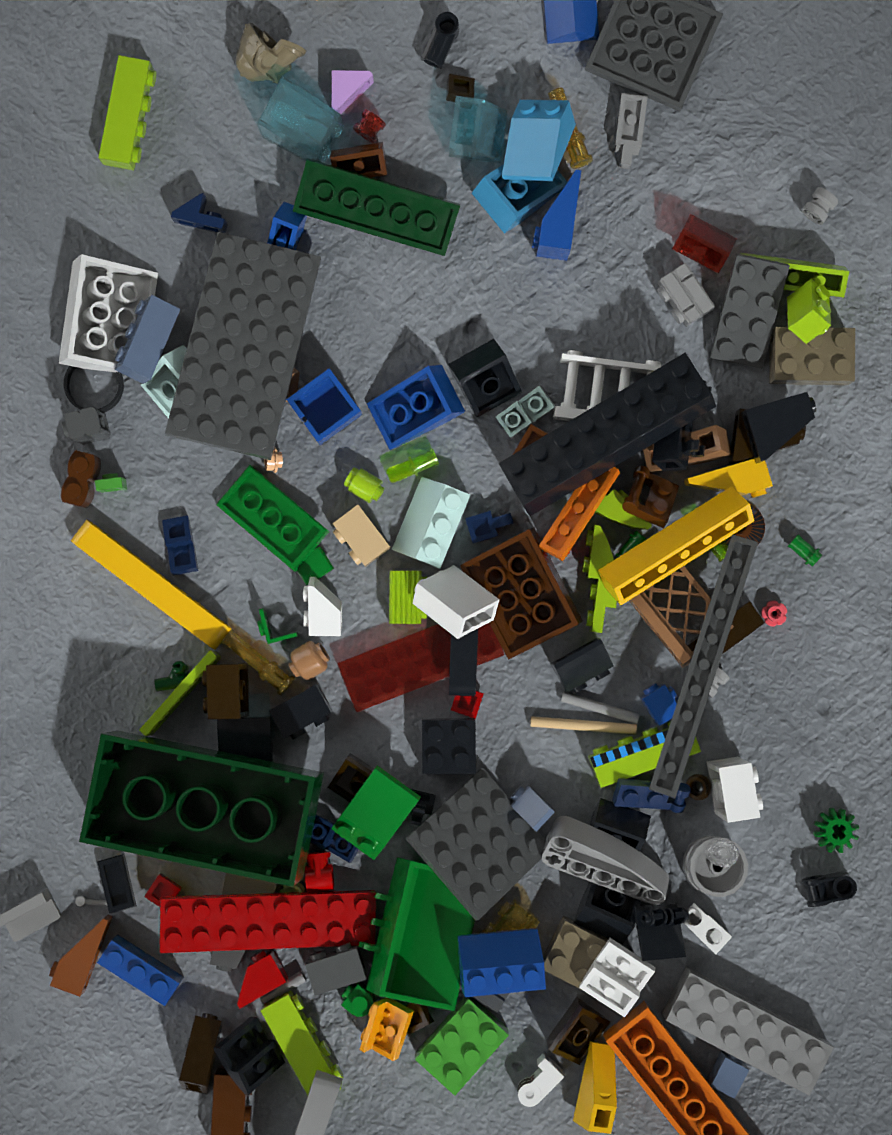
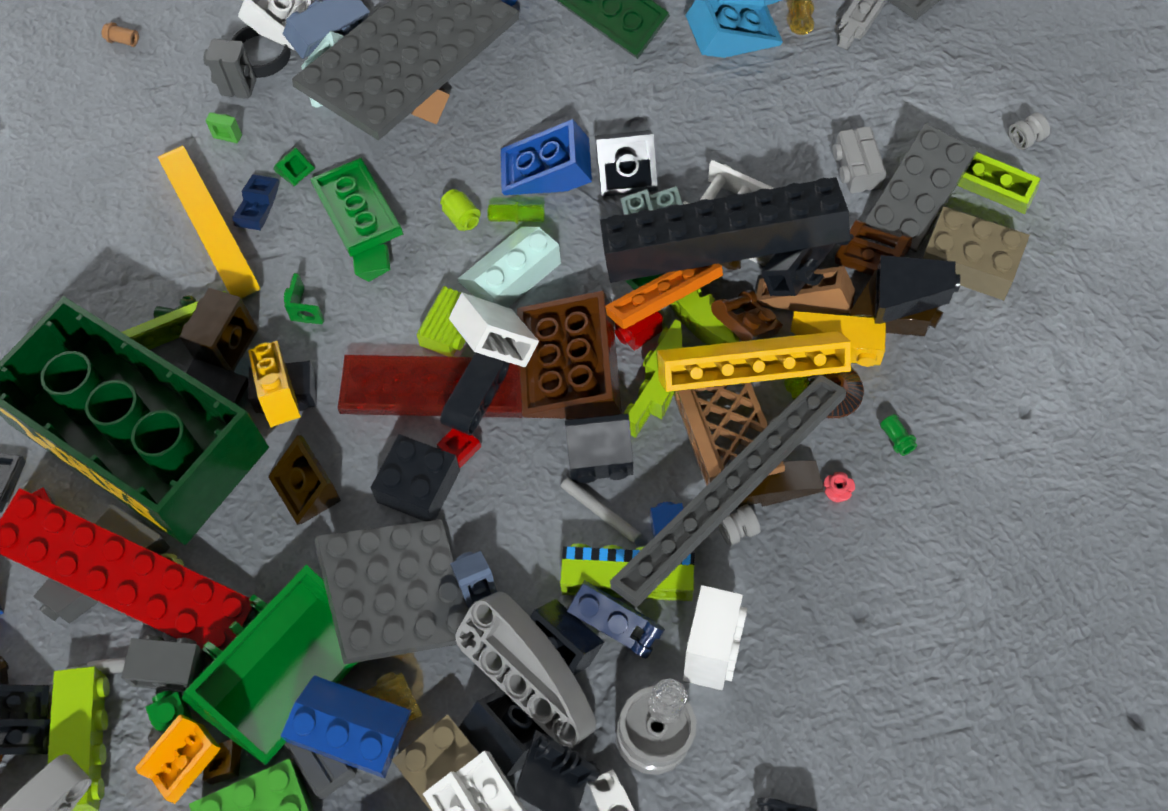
camera: 30 degrees right, 25 degrees down
(82, 472) = (190, 114): reddish brown brick -> none
(192, 496) = (293, 167): none -> green slope
(261, 977) = (78, 641): red slope -> none
(268, 669) = (267, 324): clear yellow pin -> none
(275, 462) = (385, 161): light nougat plate -> none
(300, 720) = (273, 384): none -> yellow slope
(309, 660) = (317, 341): medium nougat head -> none
(319, 872) = (209, 554): red piece -> none
(323, 611) = (357, 297): white slope -> none
(324, 406) = (457, 128): blue piece -> none
(329, 840) = (244, 528): dark blue slope -> none
(361, 536) = (432, 249): tan brick -> none
(375, 812) = (298, 506): green slope -> none
(423, 806) = (348, 522): black plate -> none
(484, 525) = (562, 286): dark blue plate -> none
(556, 231) = (758, 54): blue slope -> none
(583, 725) = (572, 520): tan bar -> none
(704, 243) = (893, 118): clear red brick -> none
(707, 786) = (672, 630): dark brown plate -> none
(728, 393) = (865, 255): none -> reddish brown plate
(809, 311) = (985, 195): lime brick -> none
(845, 828) = (828, 742): green gear -> none

